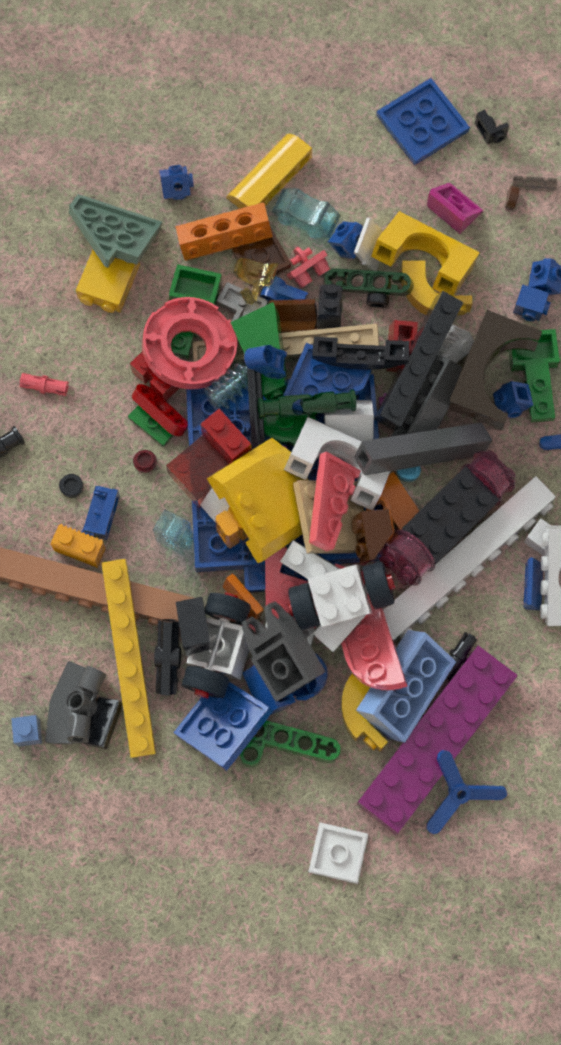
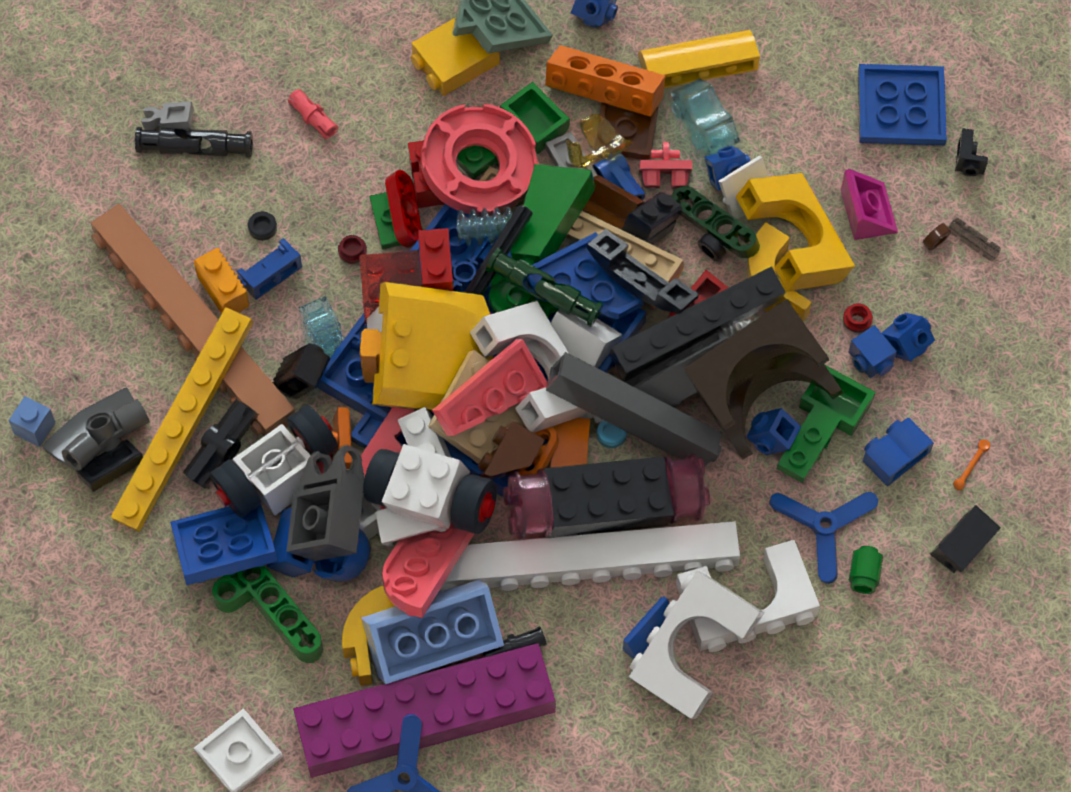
camera: 35 degrees right, 10 degrees down
(182, 570) = (301, 371): none -> black brick
(193, 625) = (263, 424): black hinge -> none
(266, 361) = (534, 217): blue piece -> none
(505, 279) = (860, 310): none -> red plate

